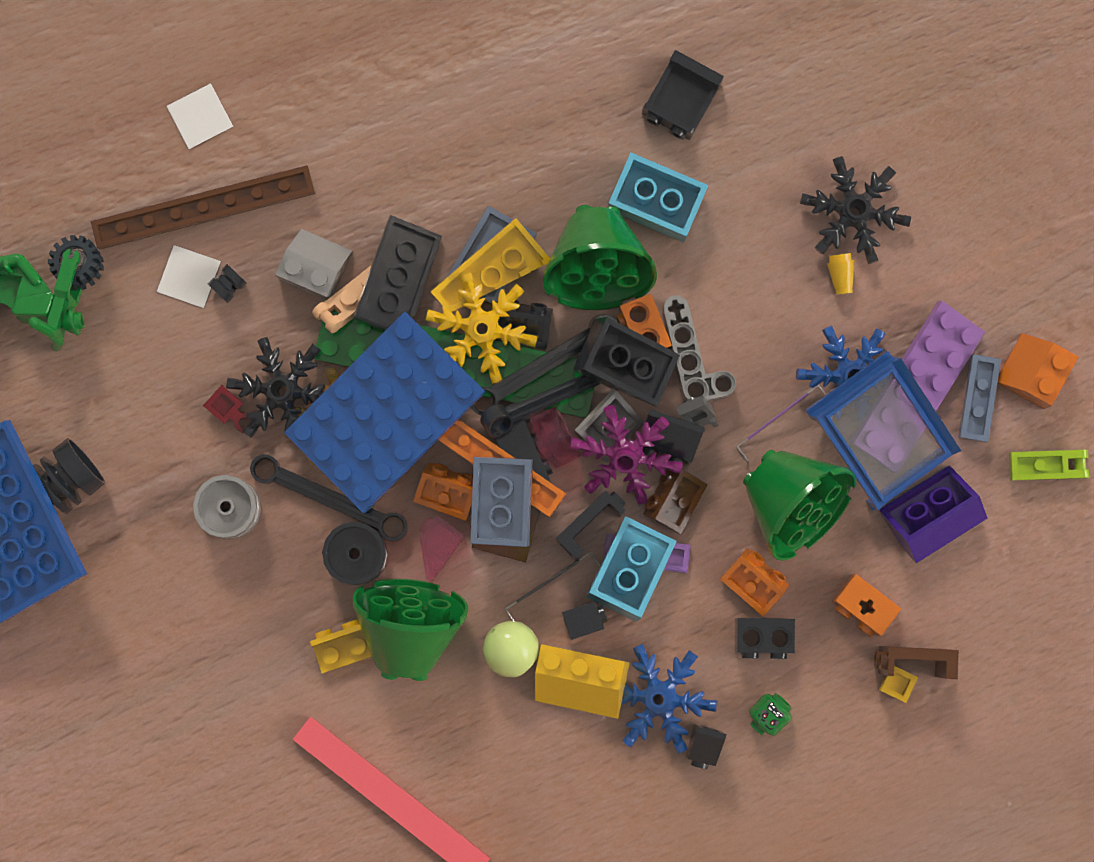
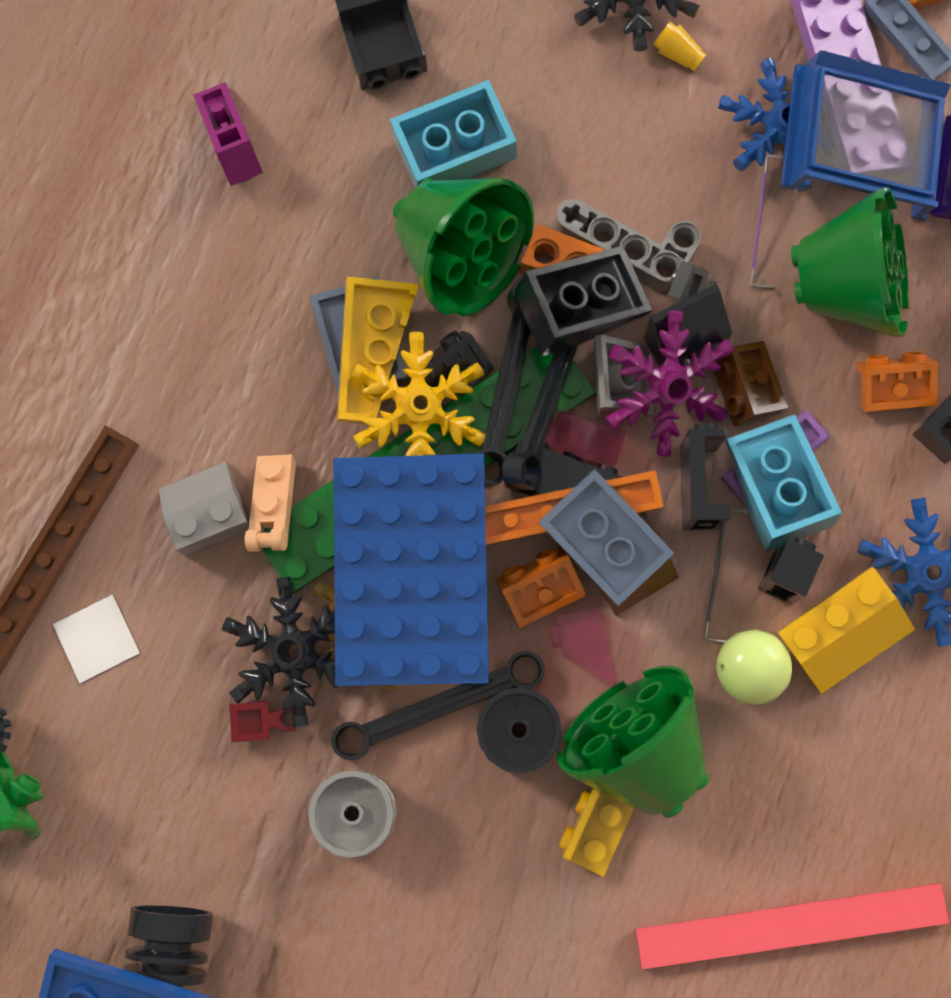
camera: 40 degrees left, 5 degrees down
(227, 283) = (139, 606): black wheel -> none
(397, 273) = (289, 437): black tile -> none
(539, 65) = (228, 134): none -> magenta slope

